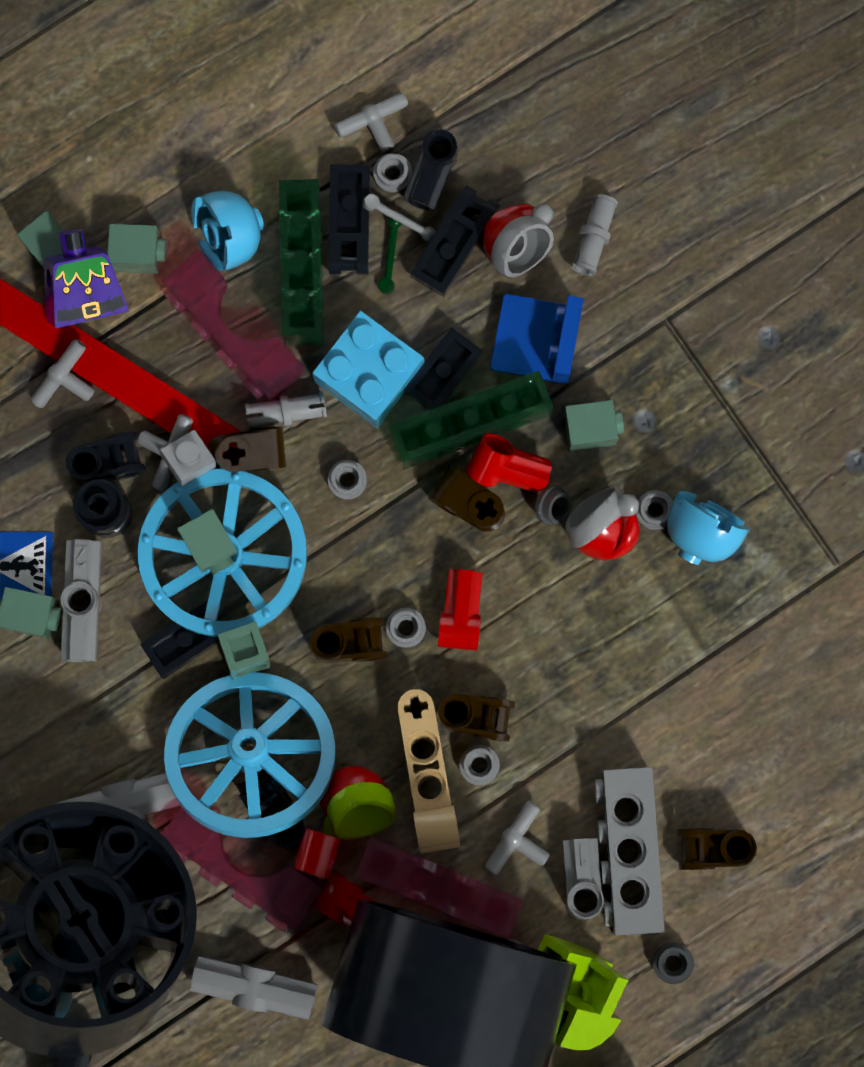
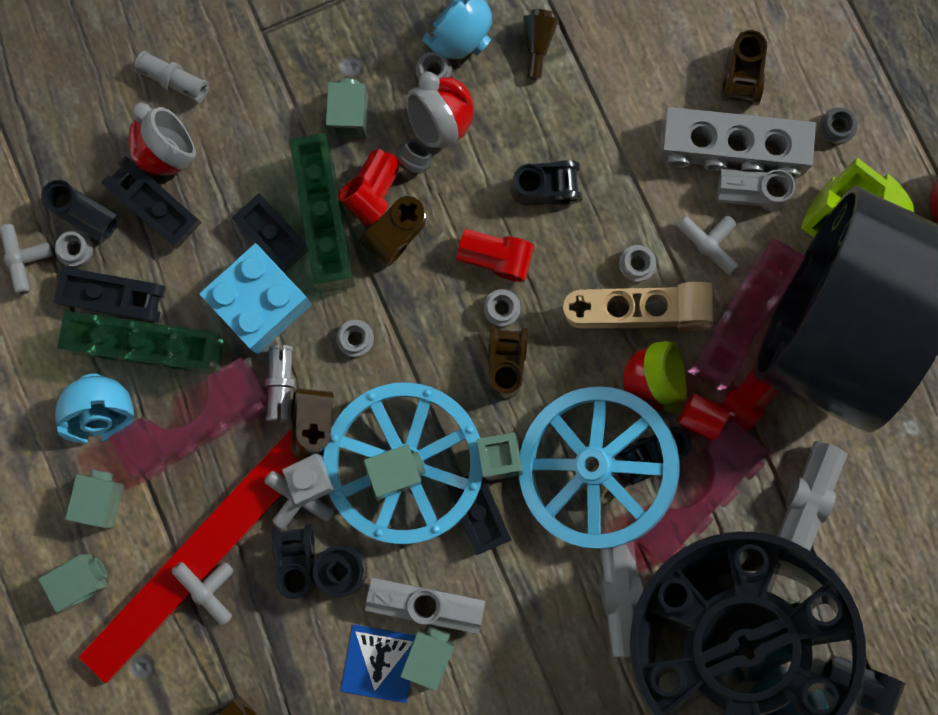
camera: 80 degrees left, 0 degrees up
(80, 283) = (117, 556): torso -> none
(372, 202) = (98, 268): light grey hinge -> none
(386, 285) = (178, 272): dark green hinge -> none
(479, 716) = (595, 253): dark brown piece -> none
(537, 337) = (256, 140): blue bracket -> none
(549, 656) = (550, 183): none -> black piece
(716, 616) = (539, 33): none -> dark brown cone

